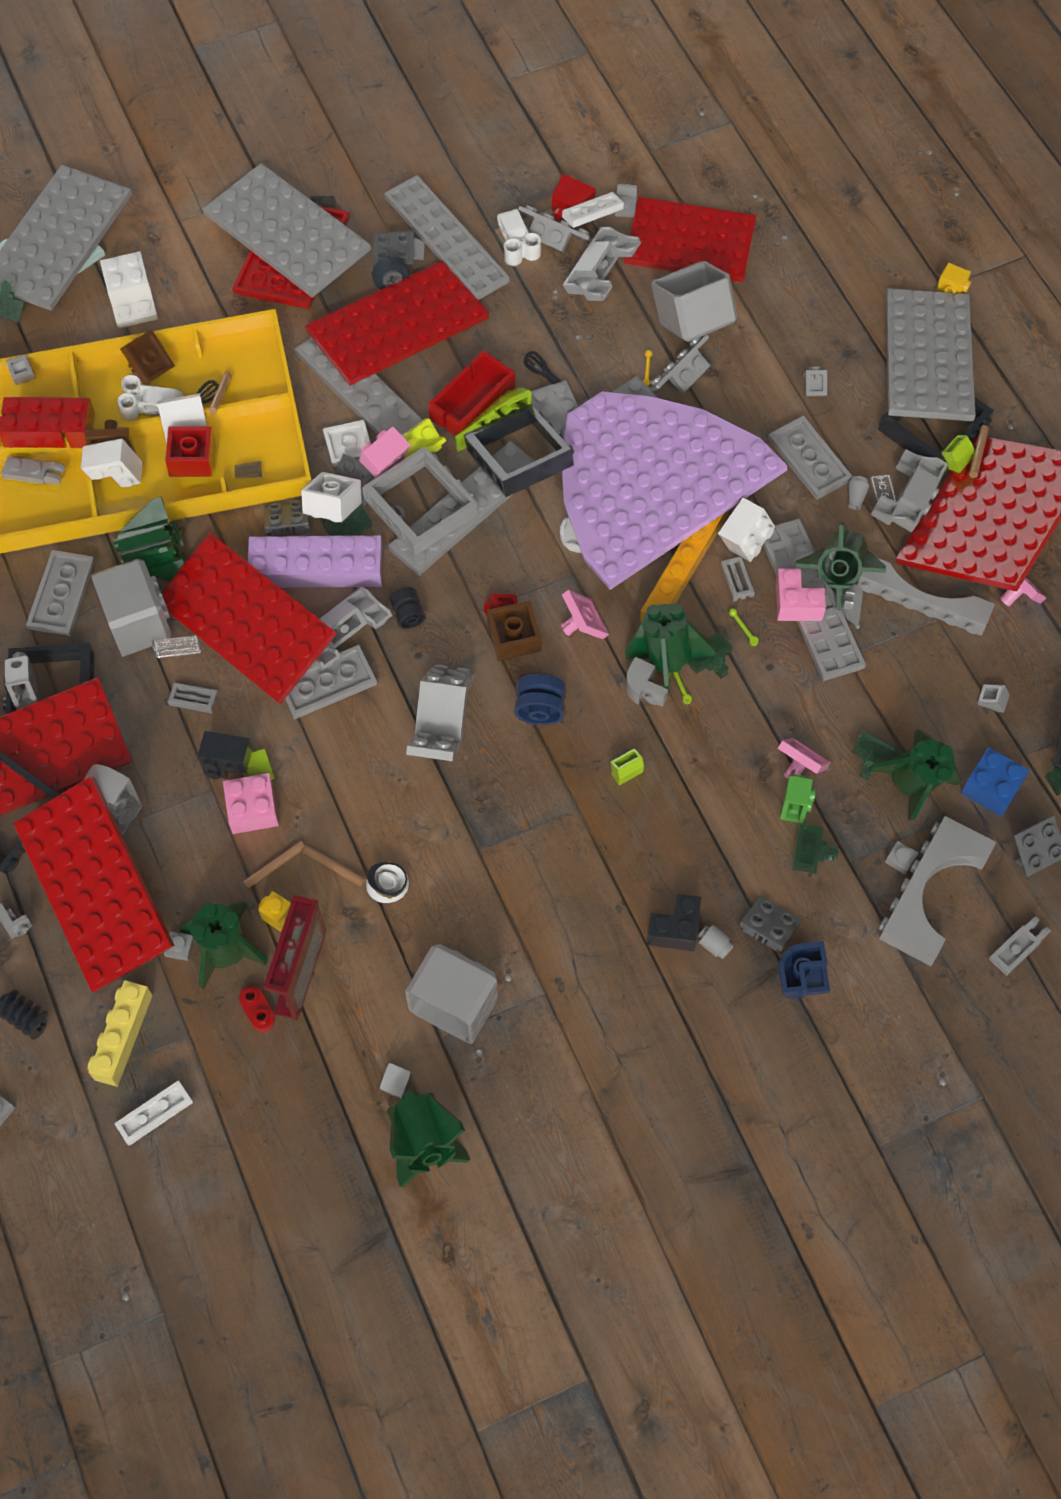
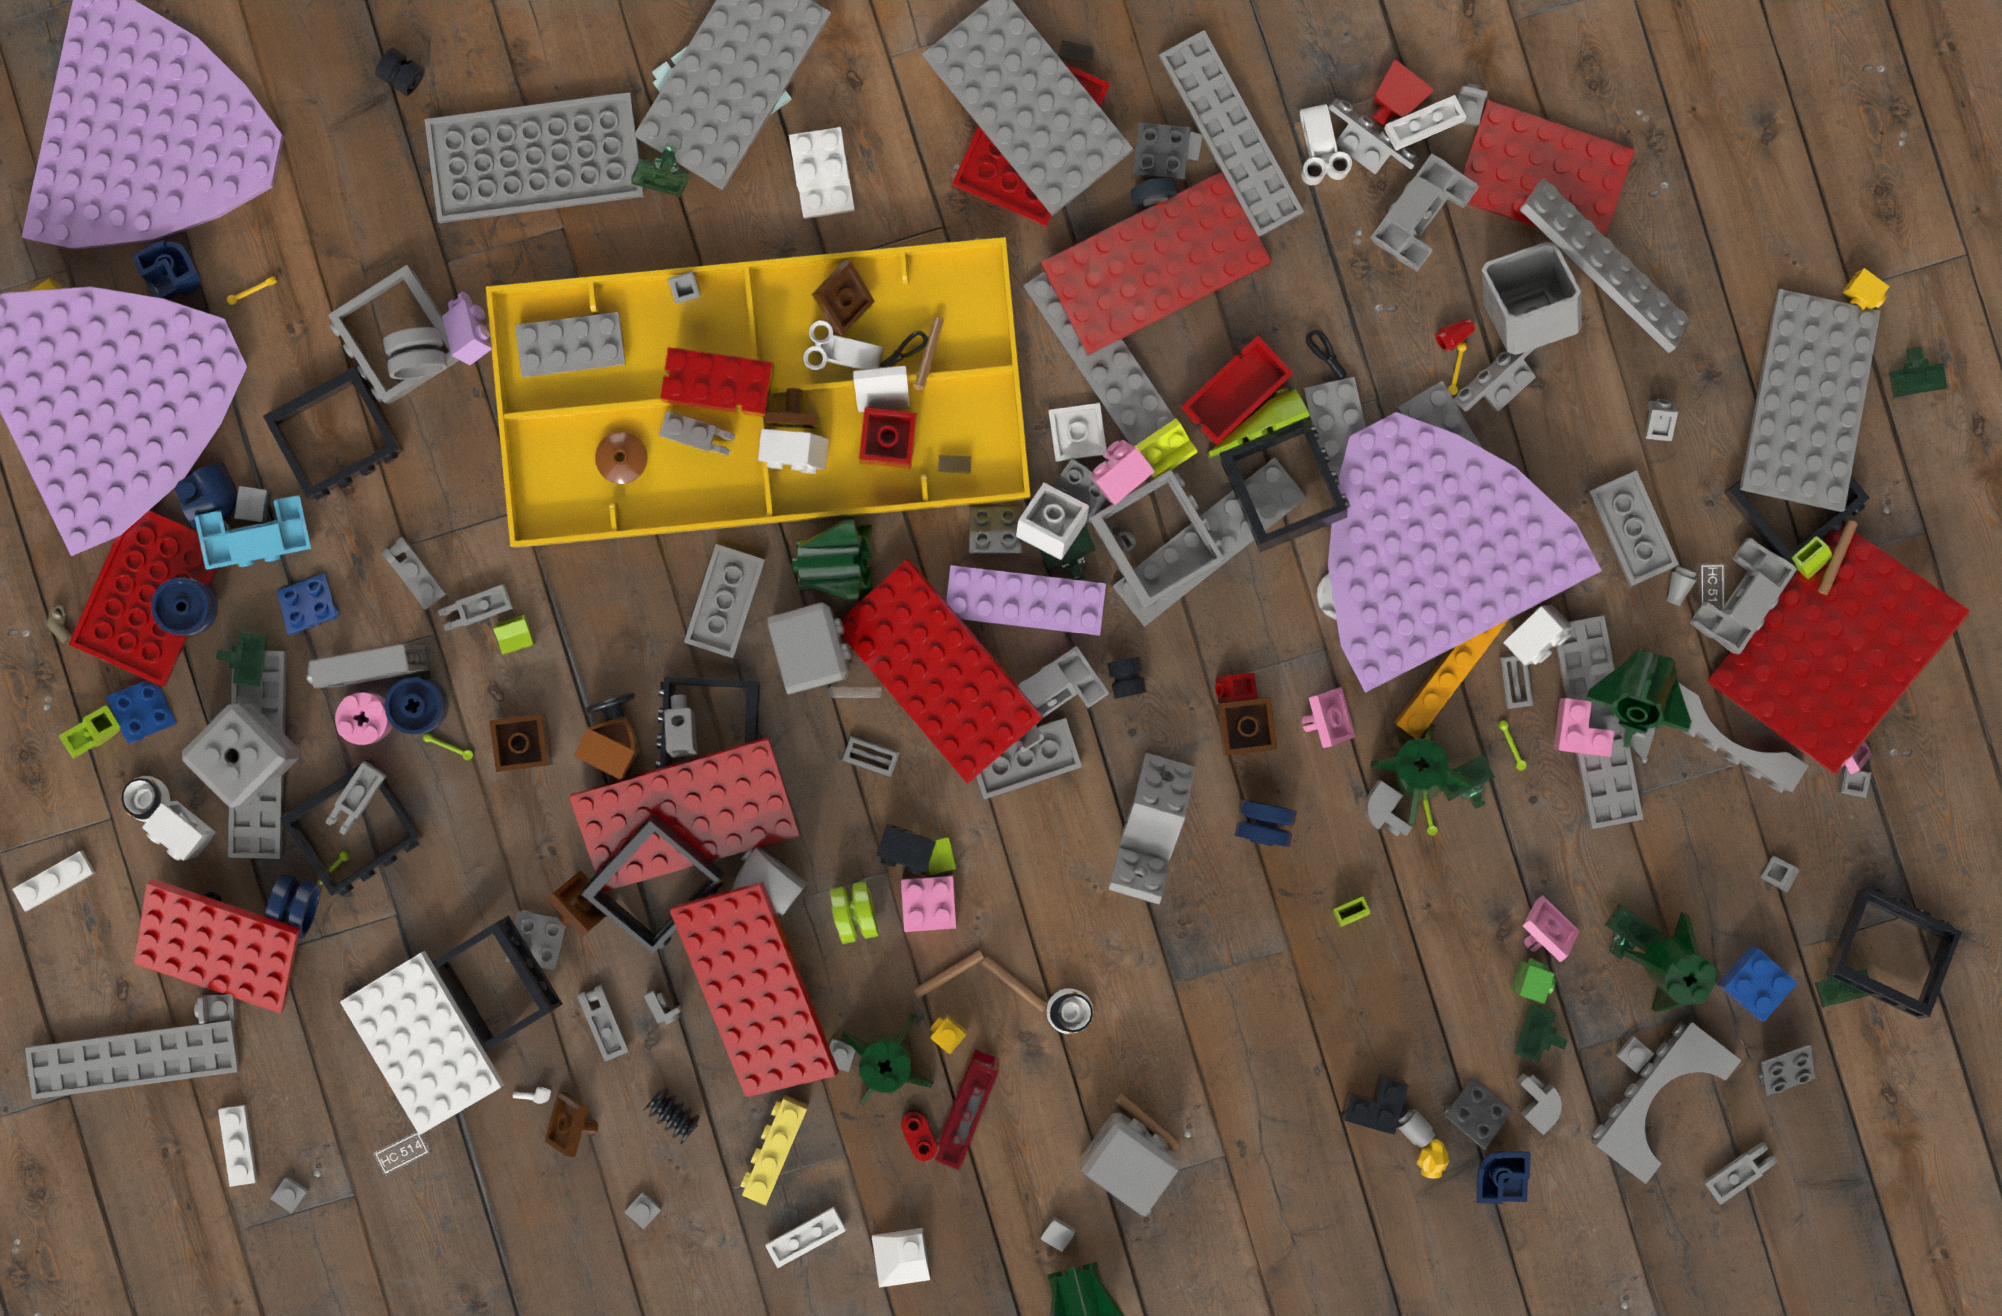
camera: 10 degrees right, 25 degrees up
(181, 814) = (850, 913): none -> lime wheel
(247, 1121) = (901, 1257): none -> white slope
(639, 344) = (1454, 334): none -> red cone
(737, 965) = (1433, 1159): none -> yellow rock
(743, 274) = (1605, 265): none -> light grey plate
(829, 905) = (1546, 1105): none -> light grey brick
(1009, 334) = (1917, 375): none -> clear green hinge
(1038, 620) = (1855, 783): none -> light grey tile

